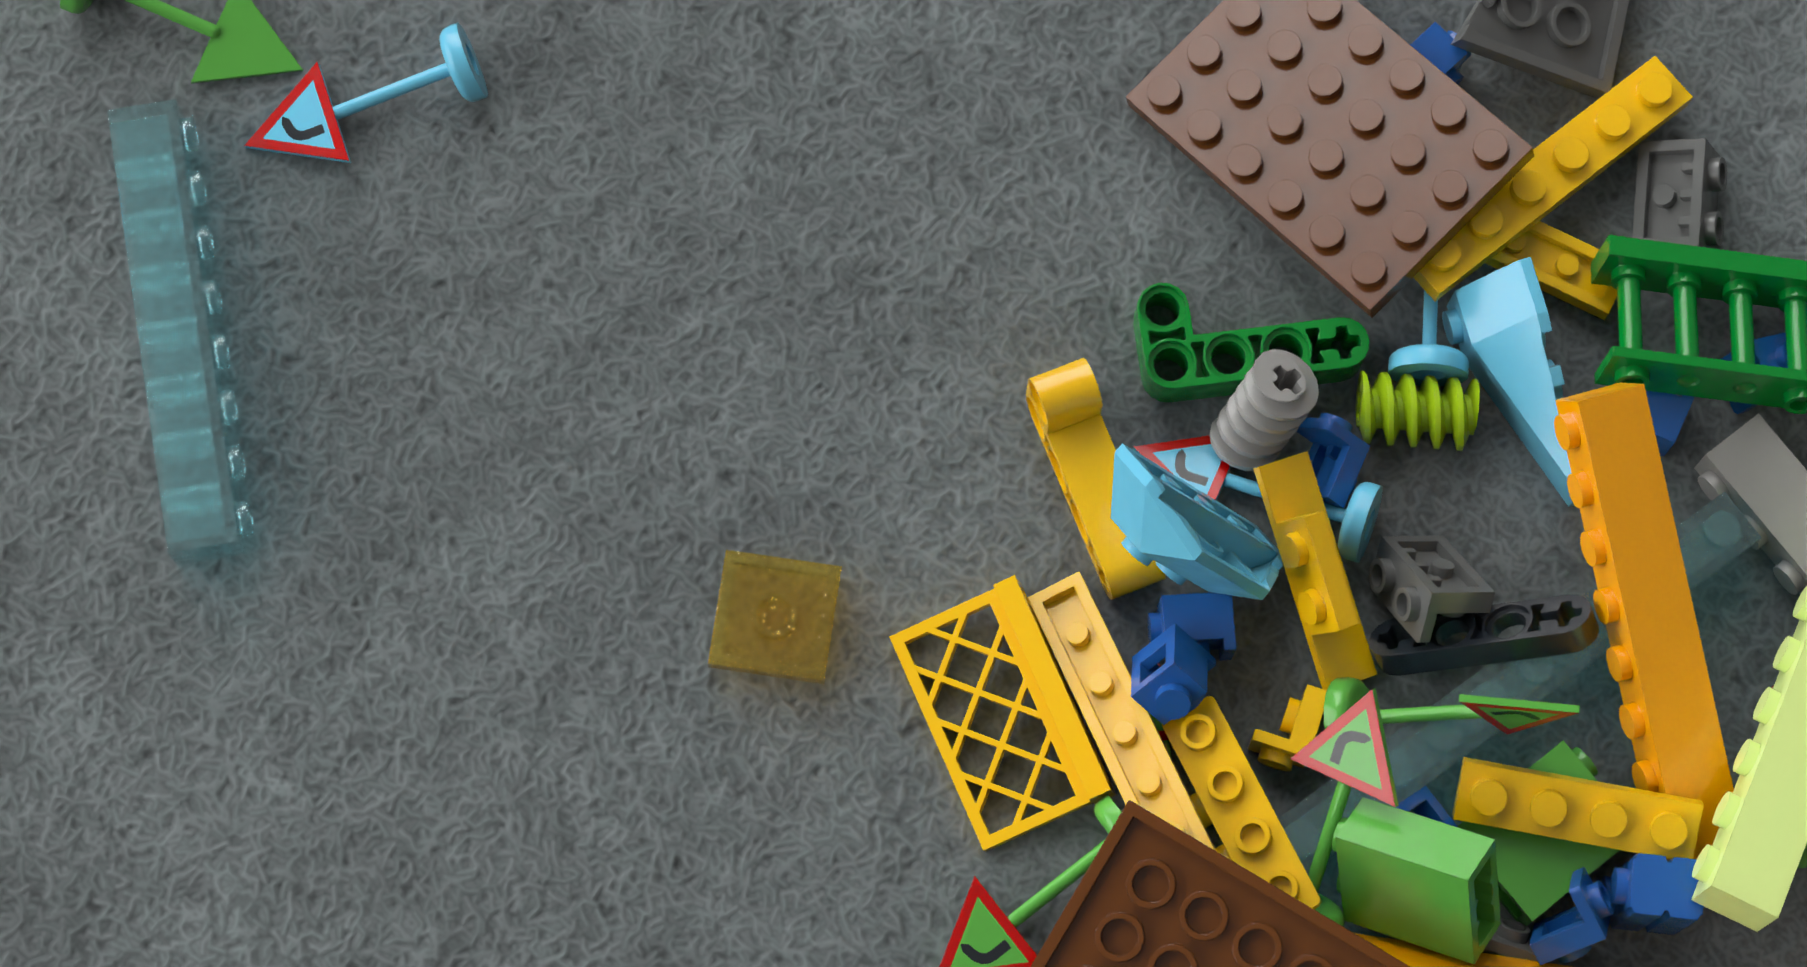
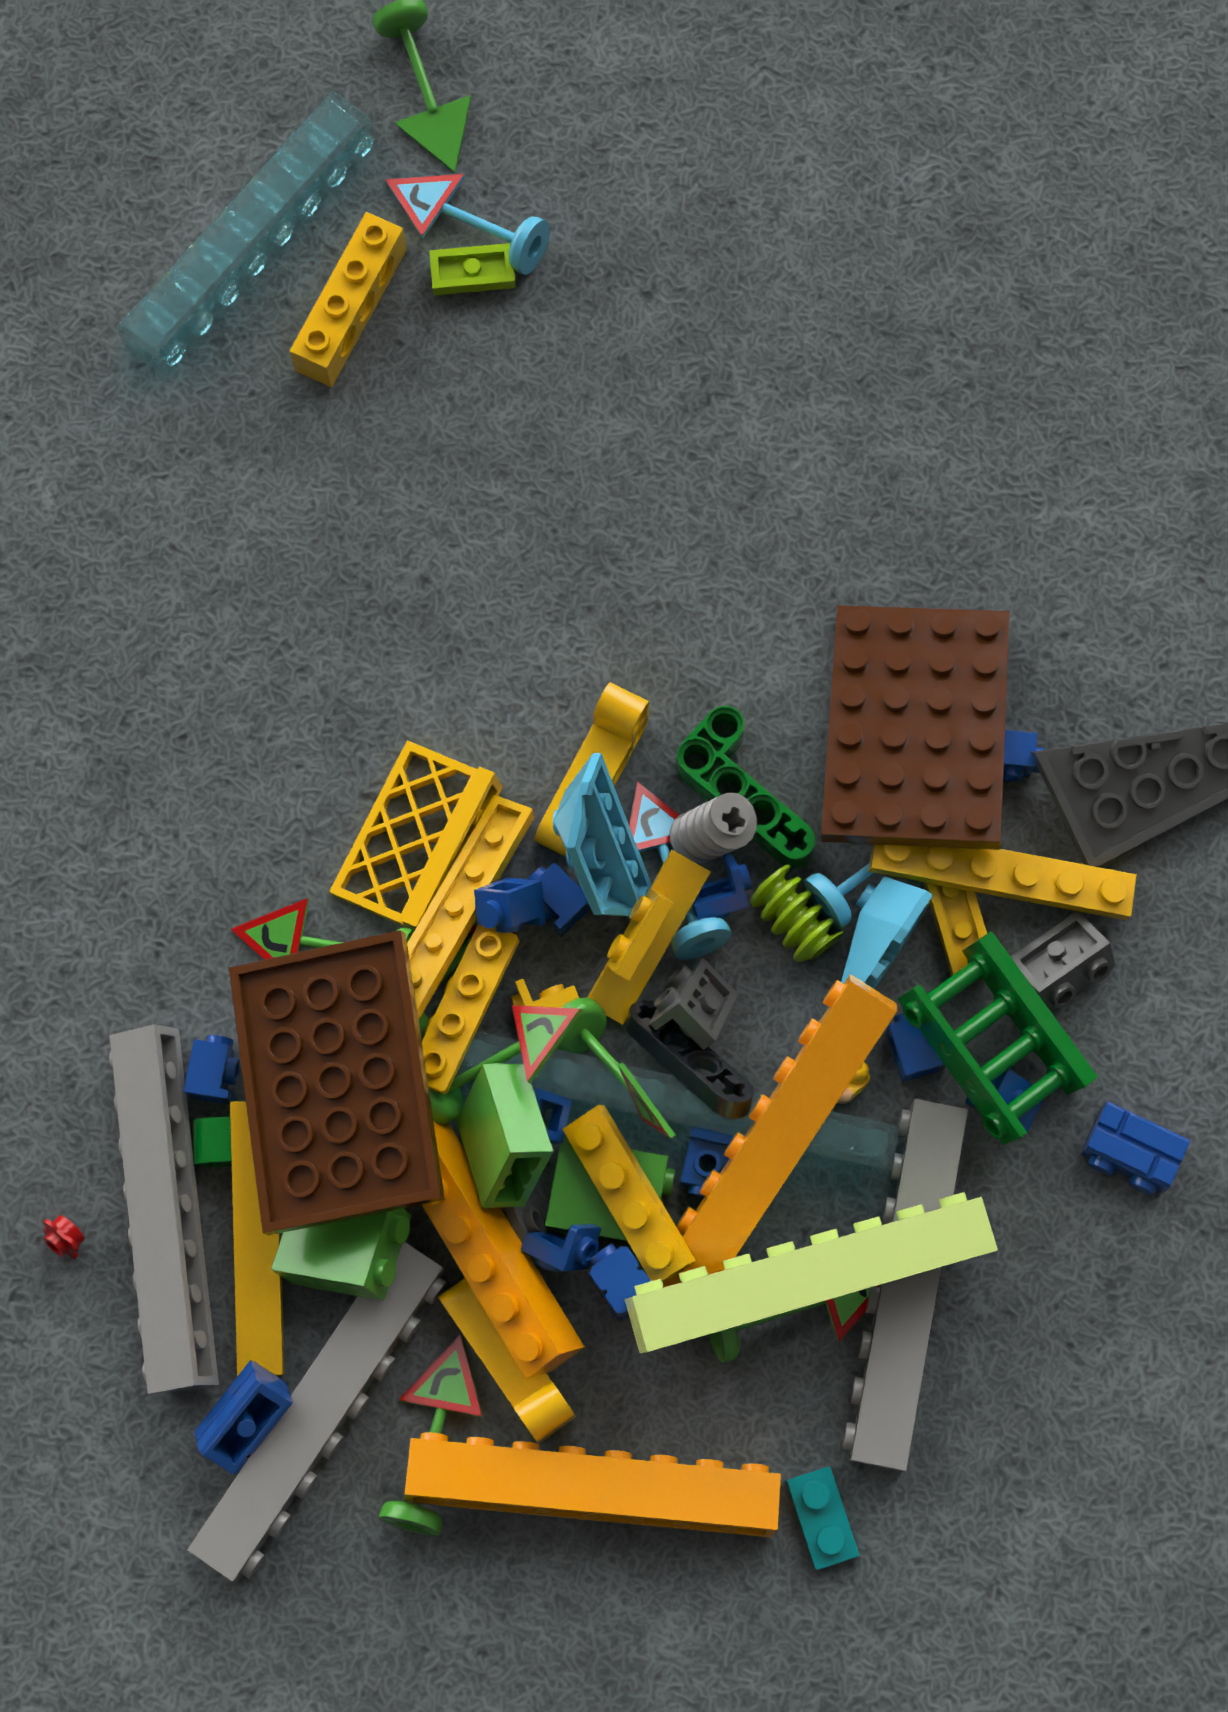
camera: 55 degrees right, 0 degrees up
(354, 291) = (348, 299): none -> yellow brick
(432, 142) = (471, 269): none -> lime plate
(775, 616) = (363, 670): clear yellow plate -> none
(1584, 728) = (701, 1145): none -> blue brick

